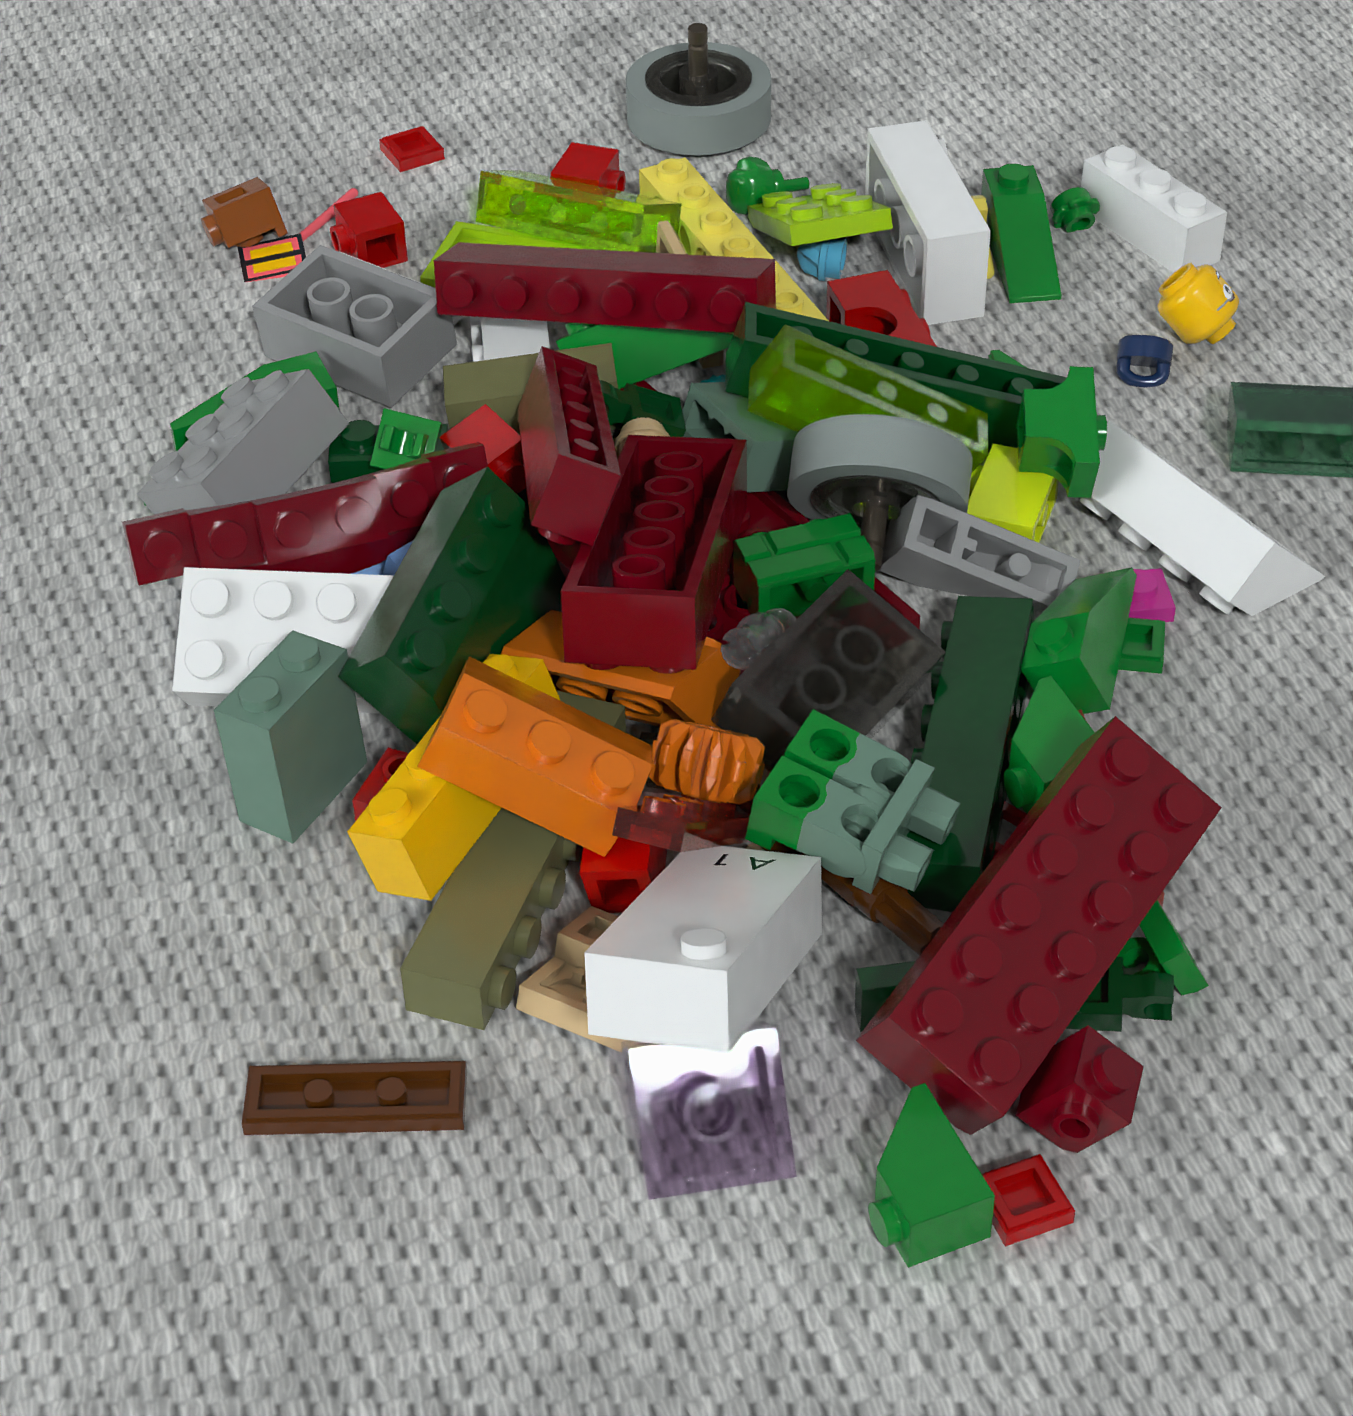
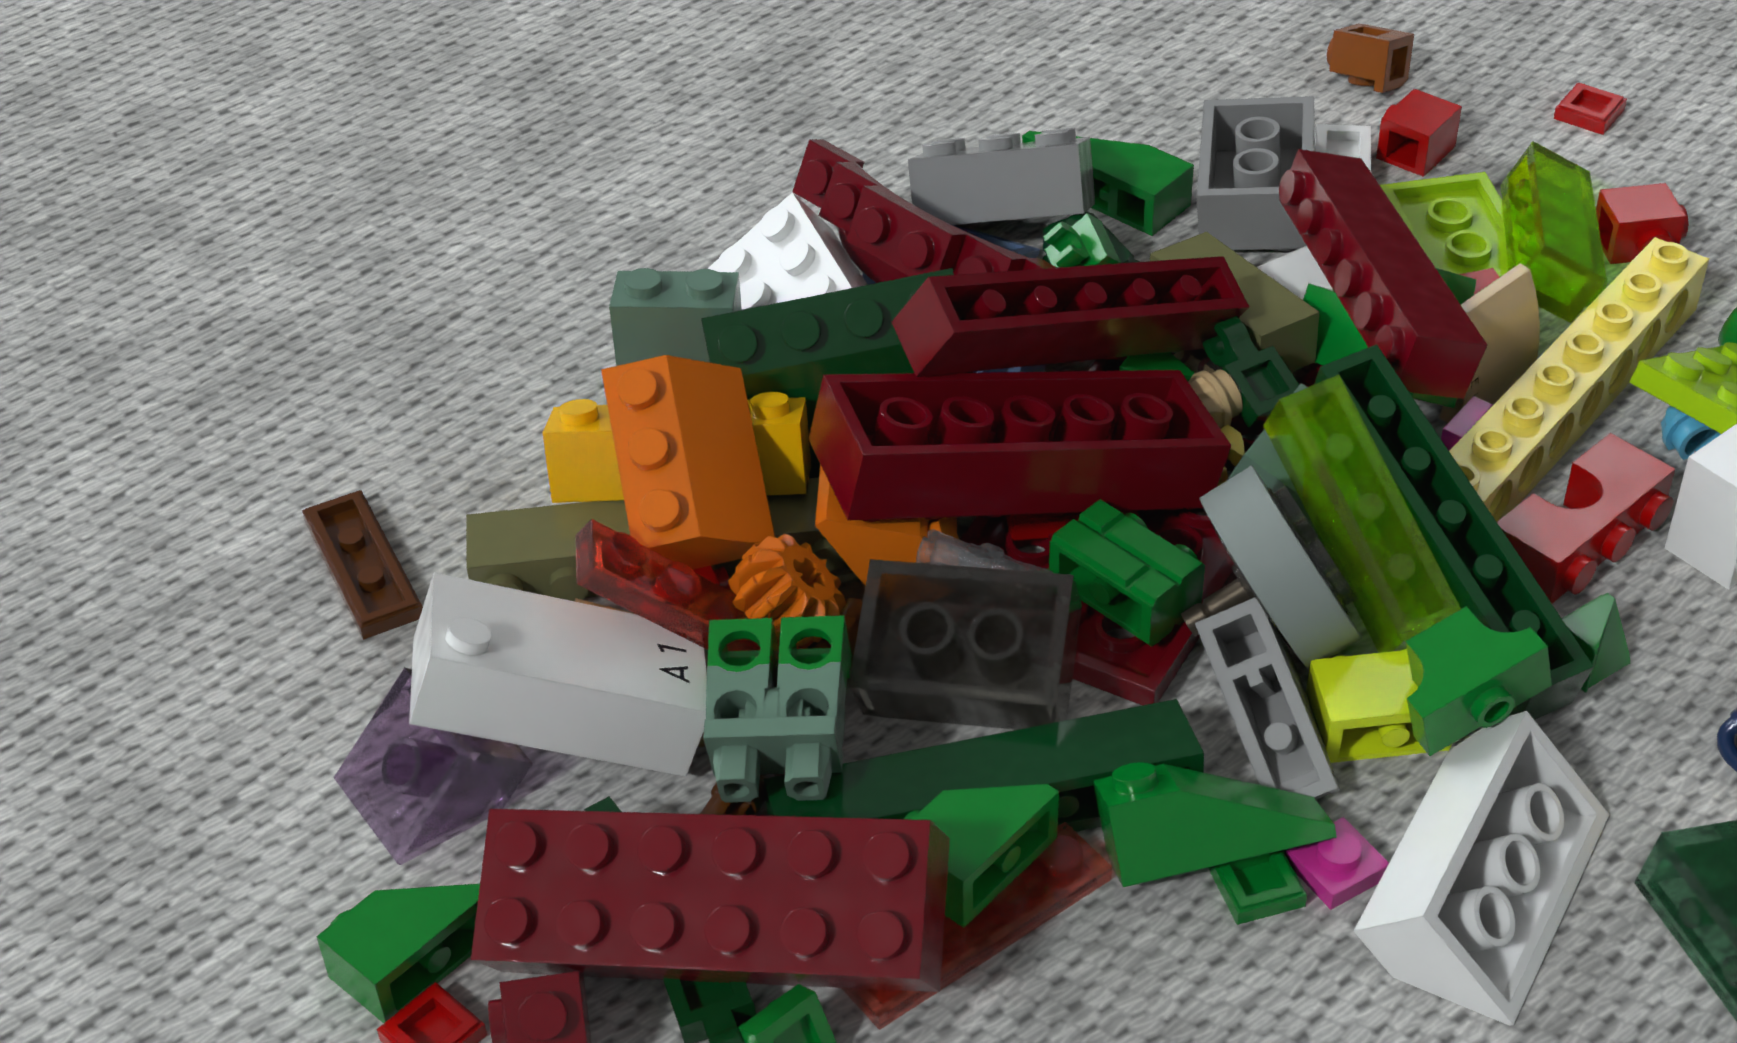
camera: 65 degrees right, 0 degrees up
(281, 255) = (1357, 104): piece -> none

